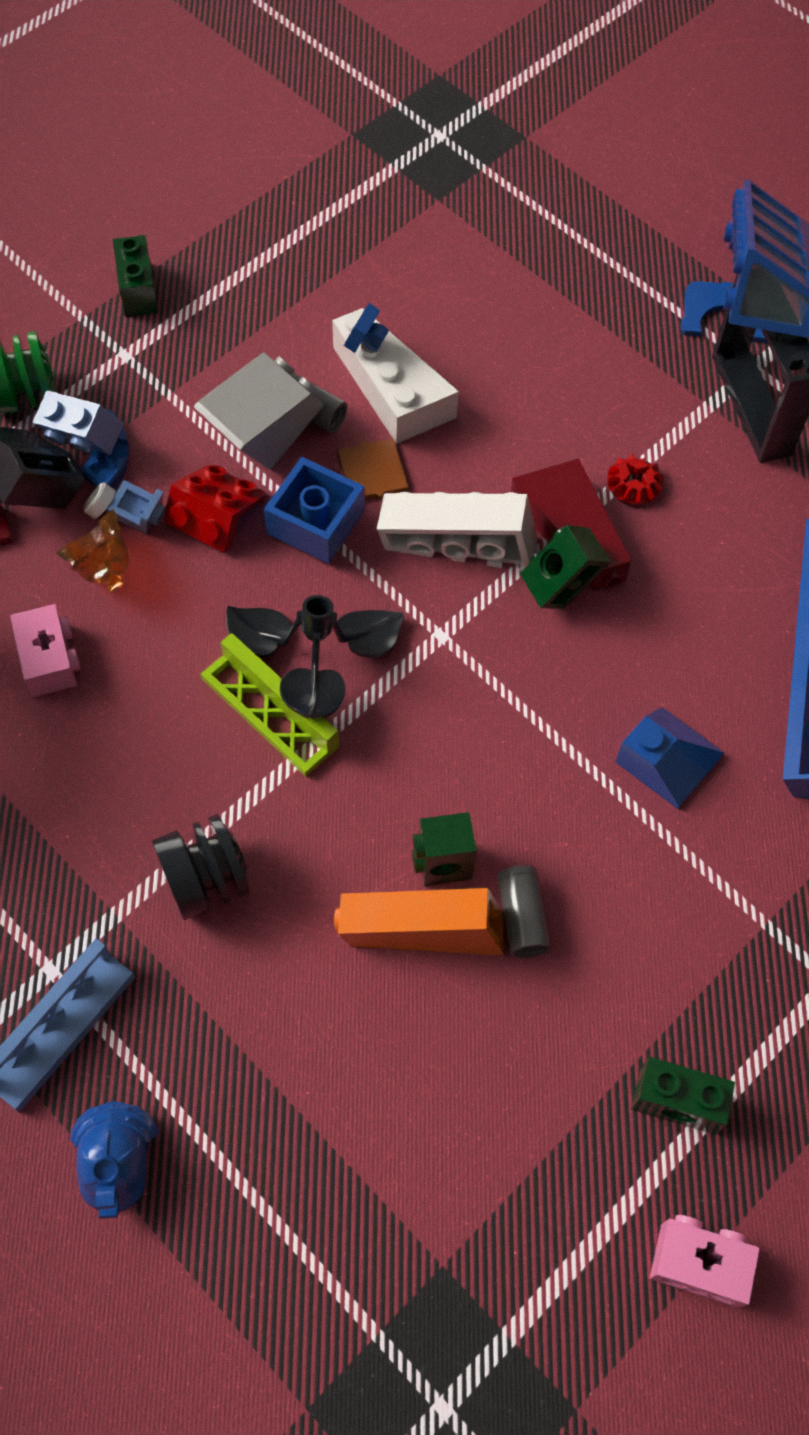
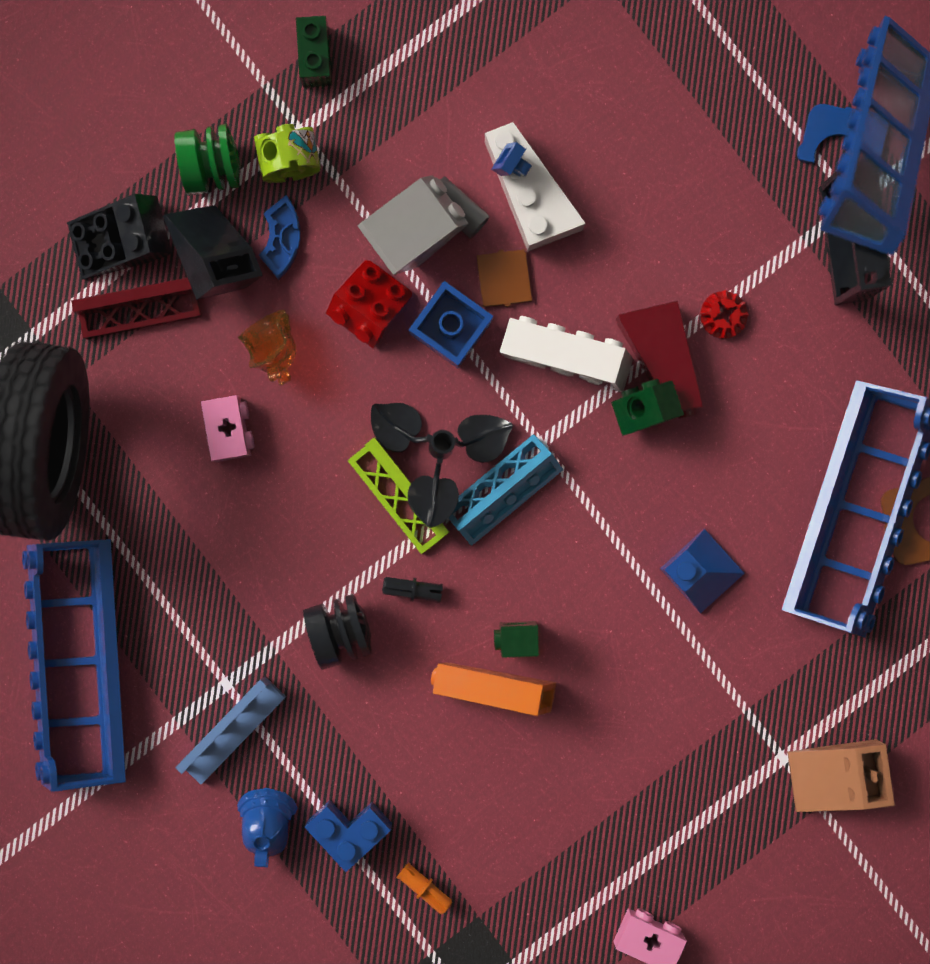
camera: 10 degrees right, 25 degrees up
(78, 423) = (258, 218): medium blue brick -> none
(99, 500) = (274, 291): white tile -> none
(109, 361) = (287, 153): none -> lime brick
(137, 507) = (305, 301): medium blue bracket -> none
(237, 1160) = (345, 839): none -> blue brick
(297, 814) = (412, 589): none -> black axle
(355, 1225) = (424, 888): none -> orange axle
(402, 688) = (506, 493): none -> dark azure fence
(523, 912) = (569, 686): dark grey pin -> none
(683, 1095) = (657, 833): dark green brick -> none

